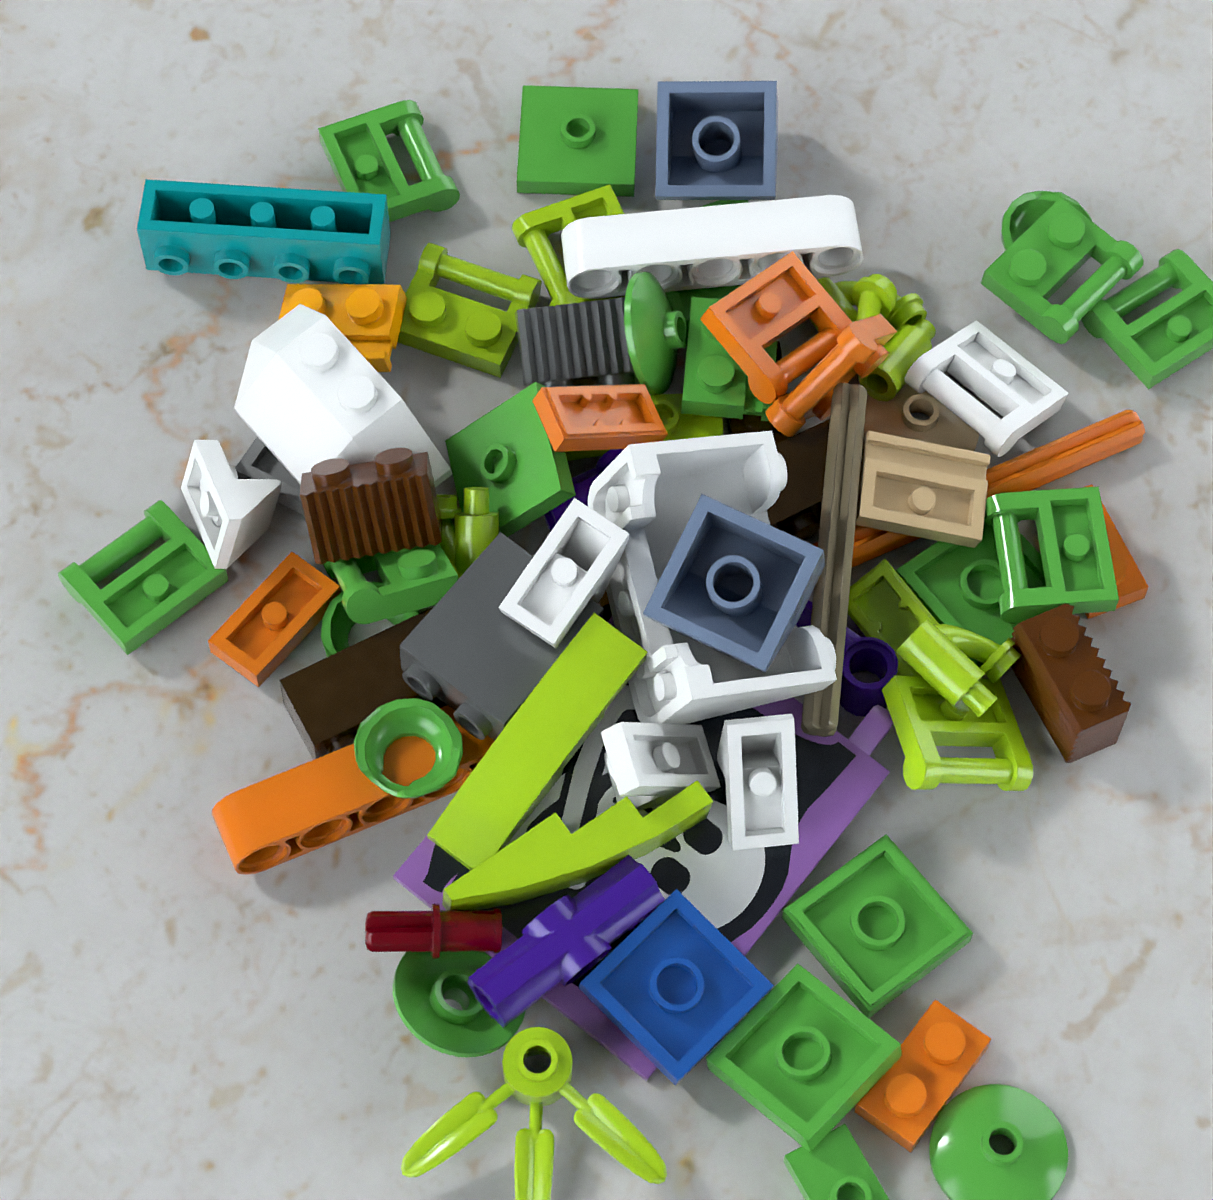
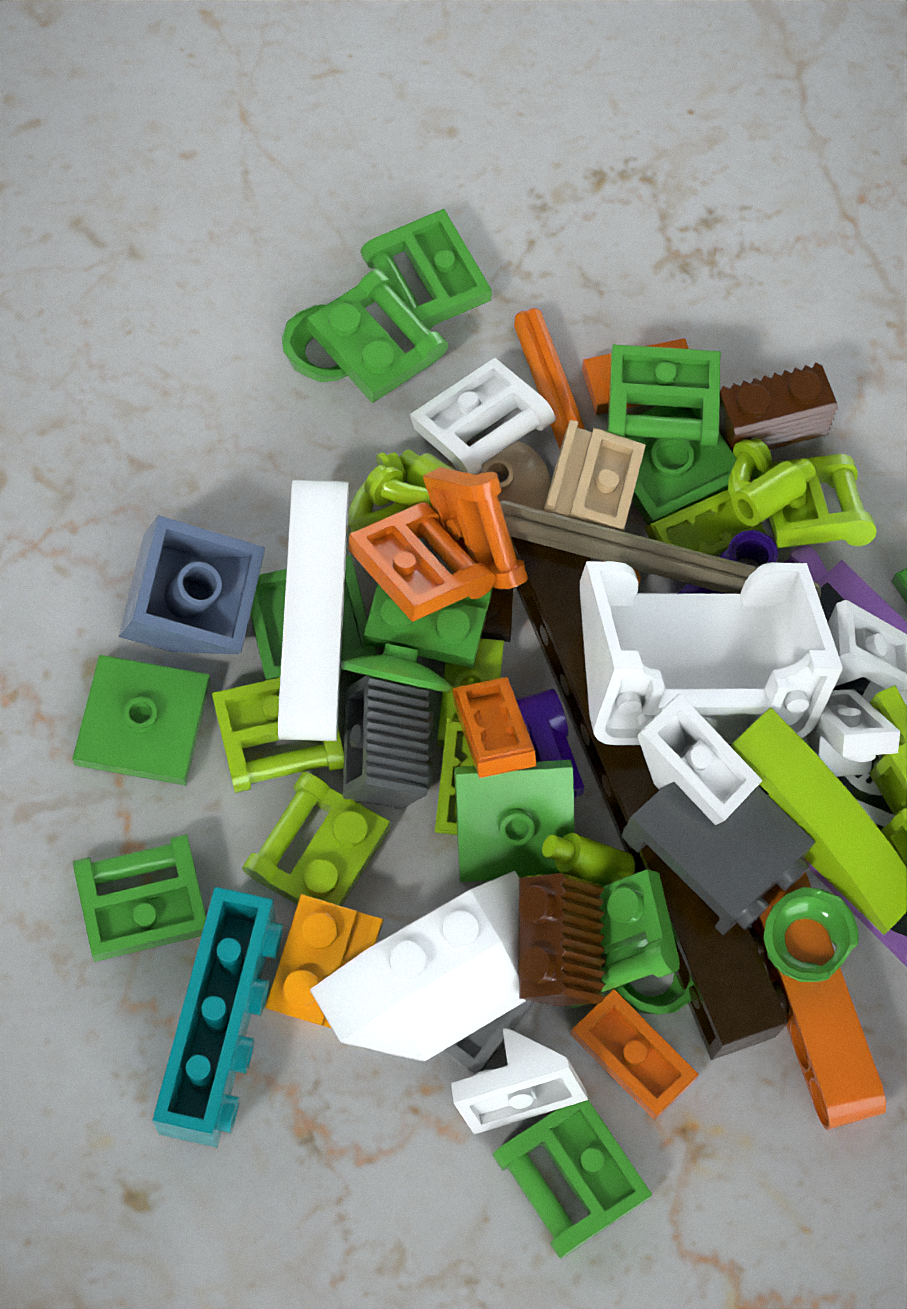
camera: 85 degrees left, 5 degrees up
(735, 583) = (722, 621): sand blue slope -> none

